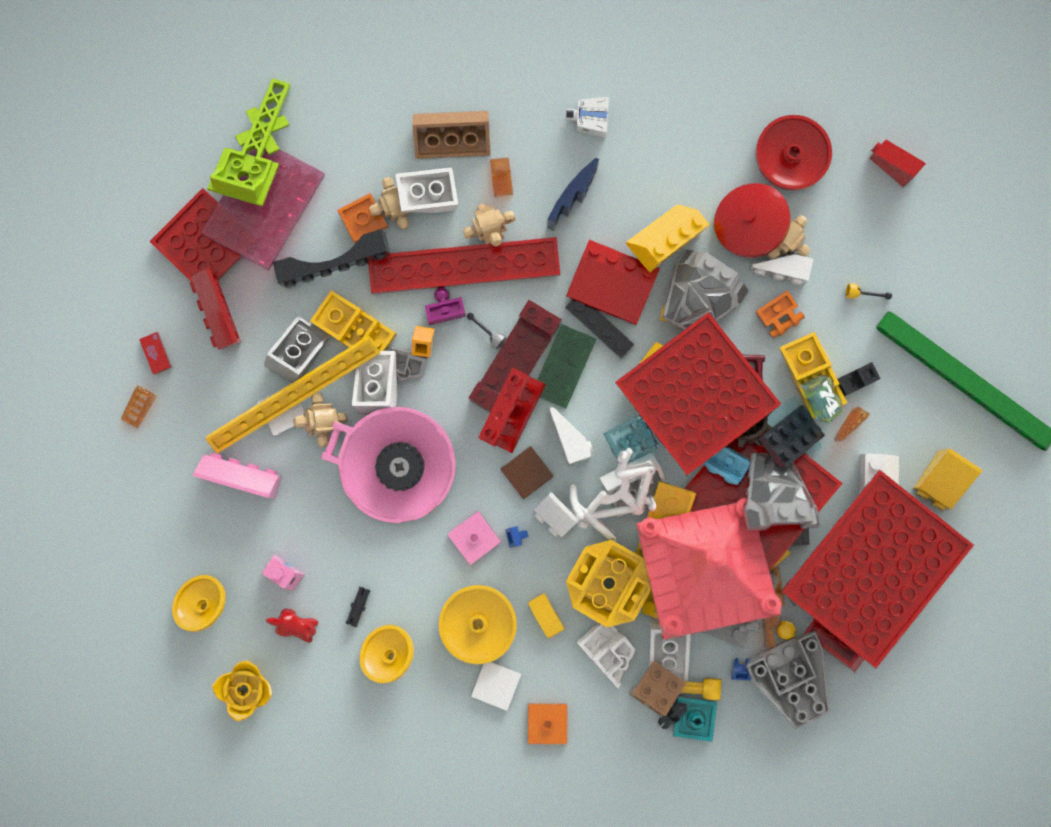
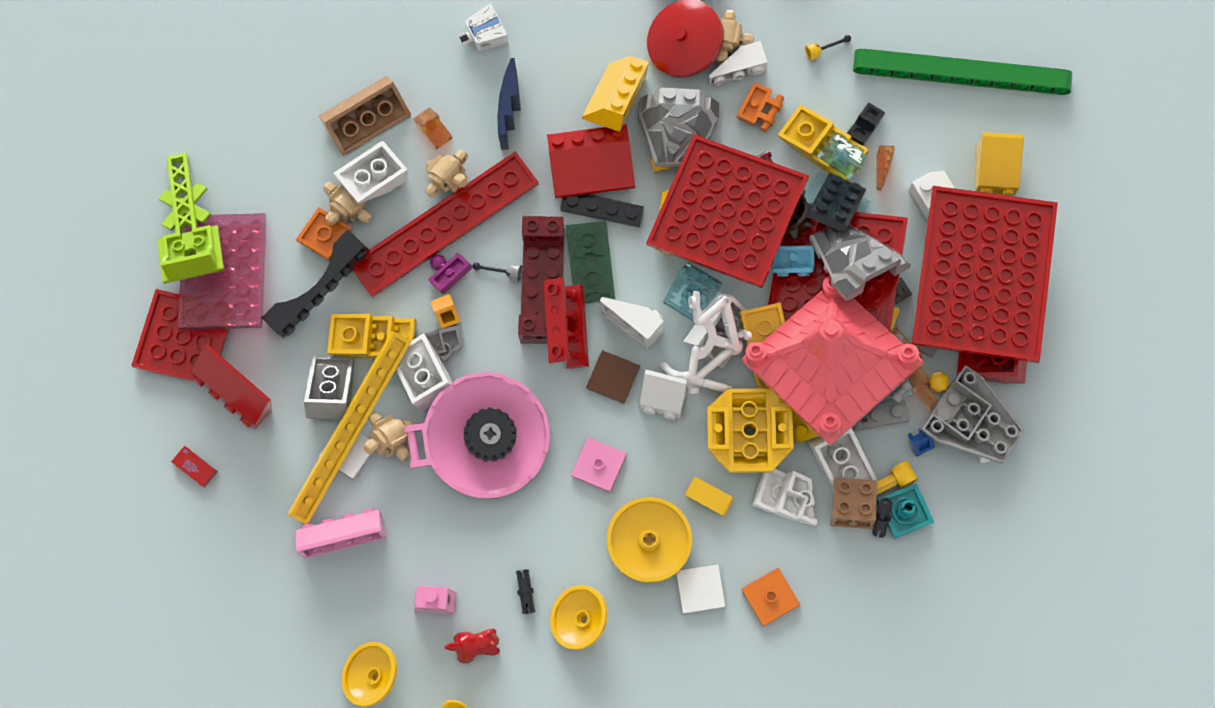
camera: 25 degrees left, 10 degrees down
(132, 403) = (197, 507): clear orange slope -> none
(514, 536) = (636, 440): blue tile -> none

